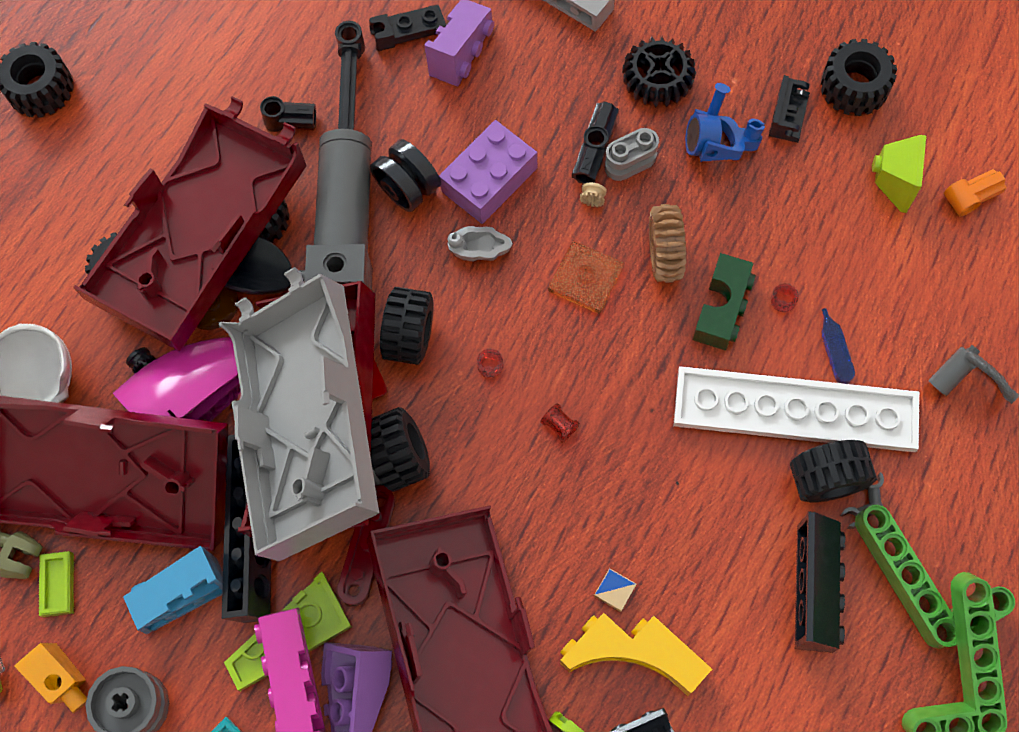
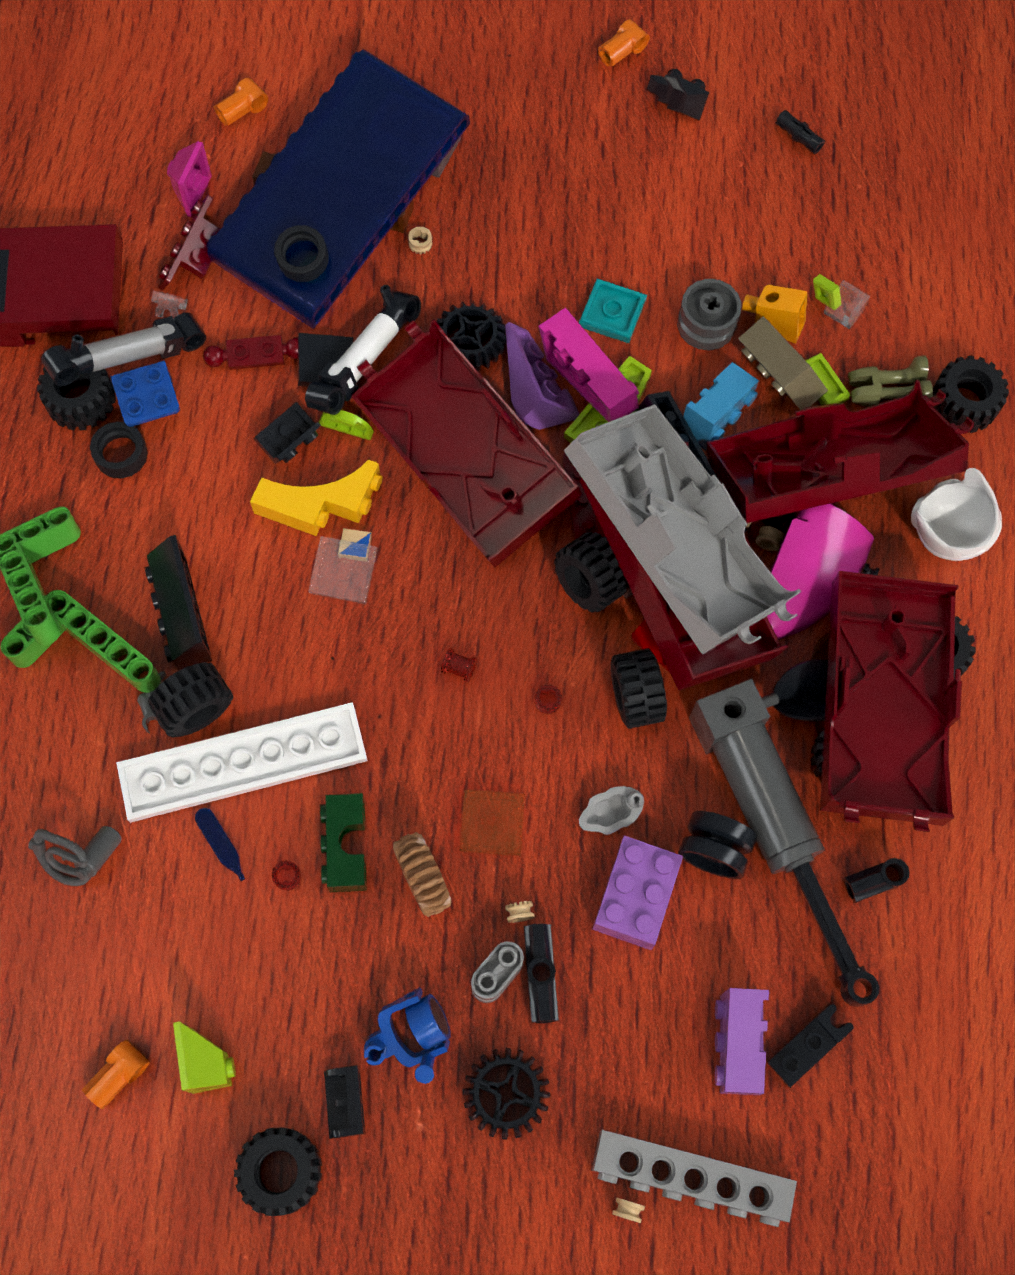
camera: 150 degrees right, 0 degrees up
(89, 612) = (782, 363): none -> dark tan wedge
(637, 565) = (343, 570): none -> clear tile

